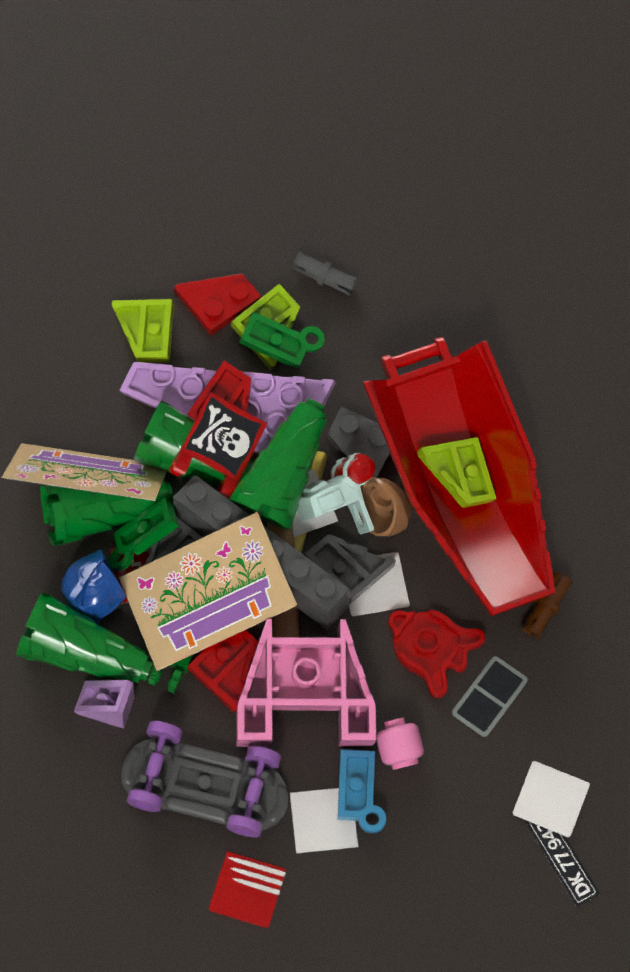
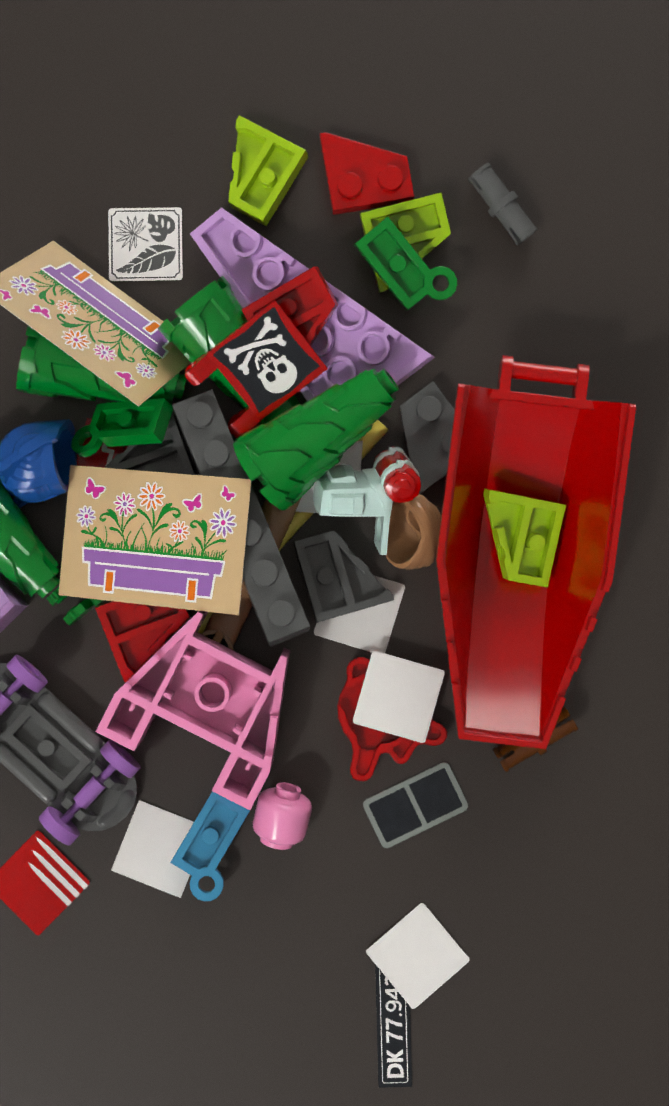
camera: 30 degrees right, 20 degrees up
(89, 415) = (145, 244): none -> white sticker
(435, 623) = (398, 696): none -> white sticker

